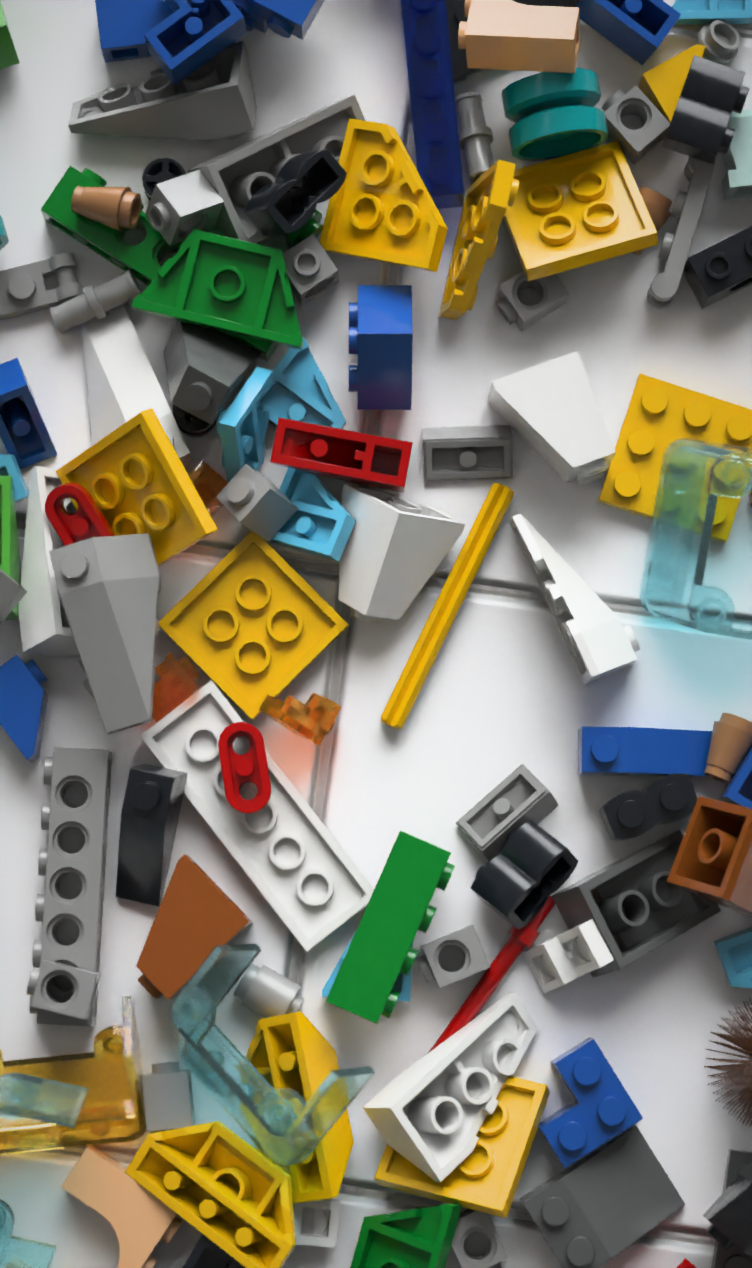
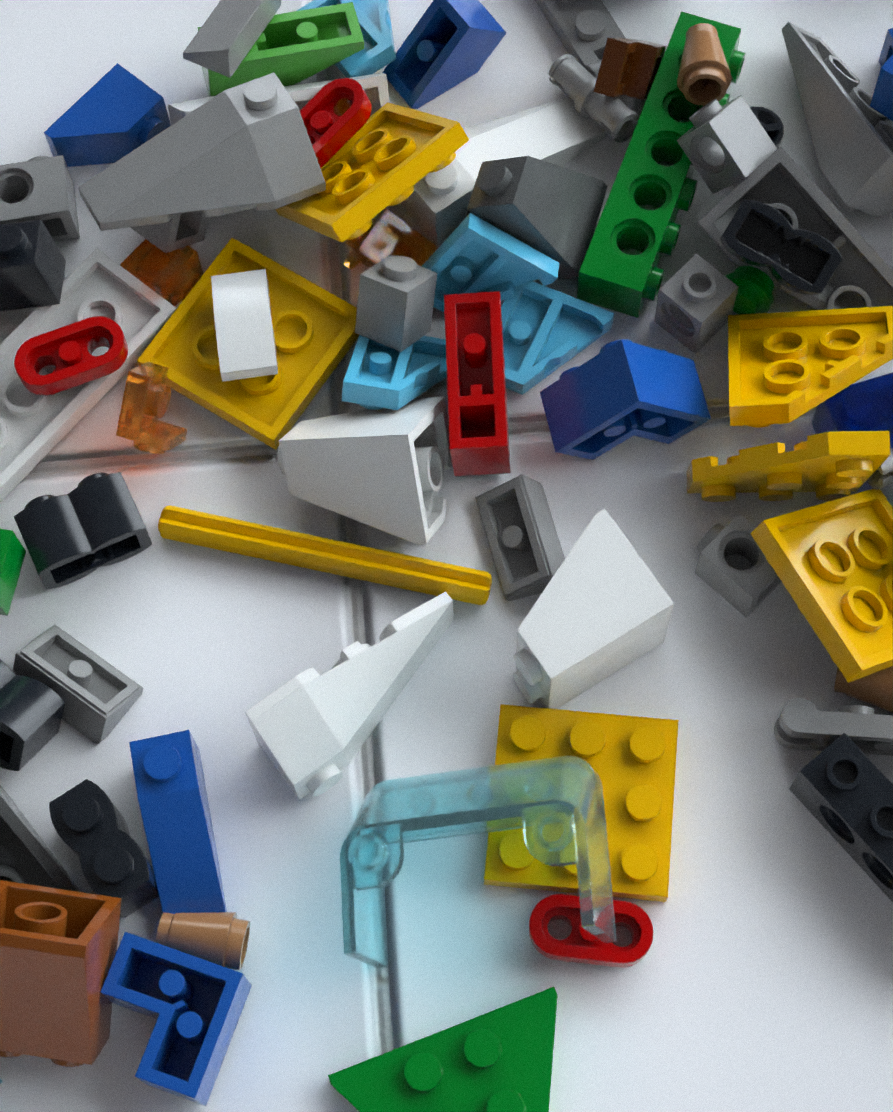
camera: 85 degrees right, 15 degrees down
(88, 263) = (628, 67): none -> reddish brown slope
(226, 288) = (642, 206): green wing -> none
(249, 626) = (244, 325): none -> white slope
(387, 786) = (82, 529): none -> black brick

